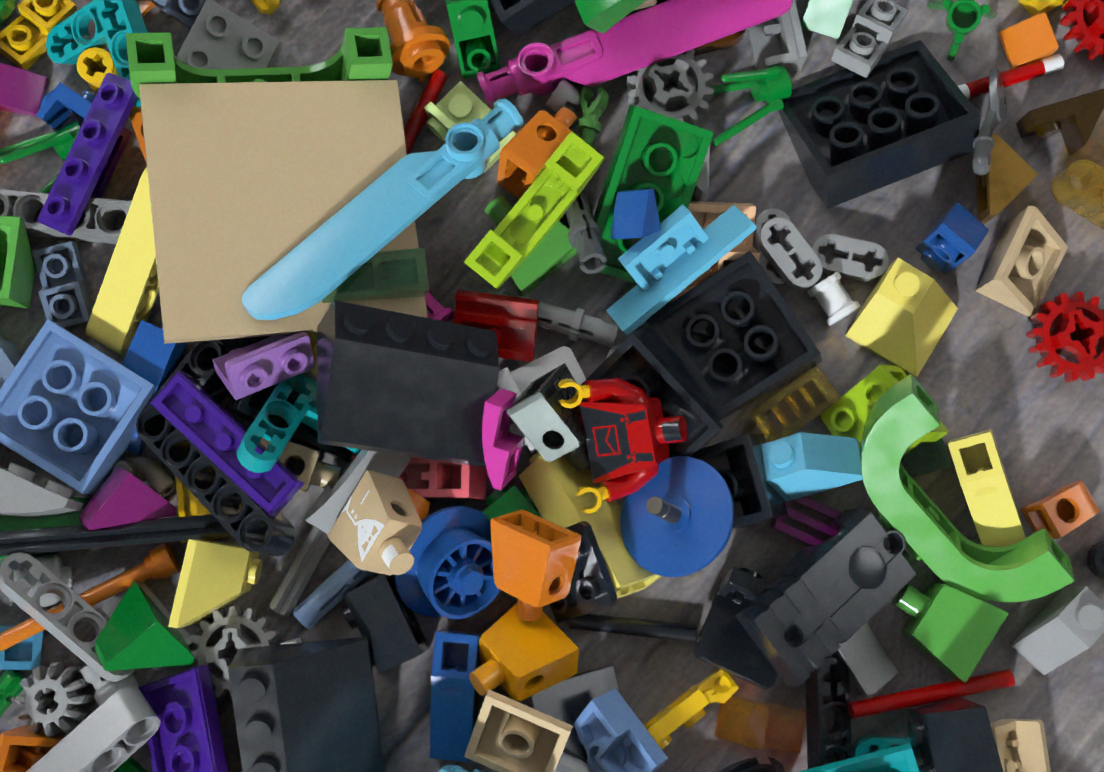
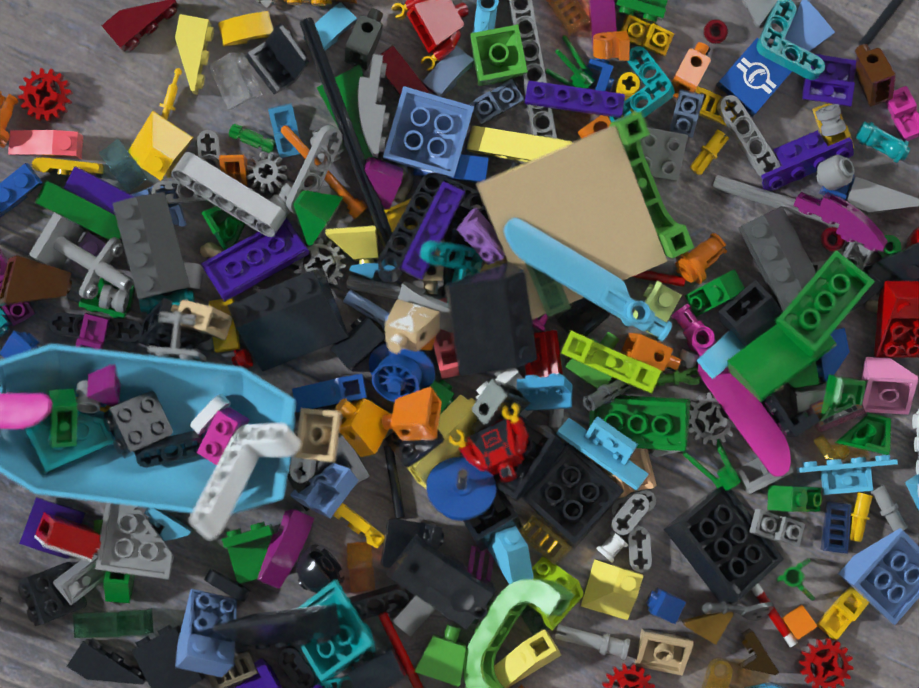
camera: 70 degrees right, 5 degrees up
(28, 76) = (611, 45): none -> orange leg
(269, 573) = (368, 270): none -> dark azure slope
(447, 241) = (582, 317): none -> black bracket
(500, 446) = (473, 380): dark pink slope -> none
(554, 331) = (546, 392): none -> dark azure bracket
(573, 42) = (716, 357): none -> medium azure slope
(635, 214) = (624, 419): blue slope -> none
(988, 356) = (604, 643): none -> light grey pin

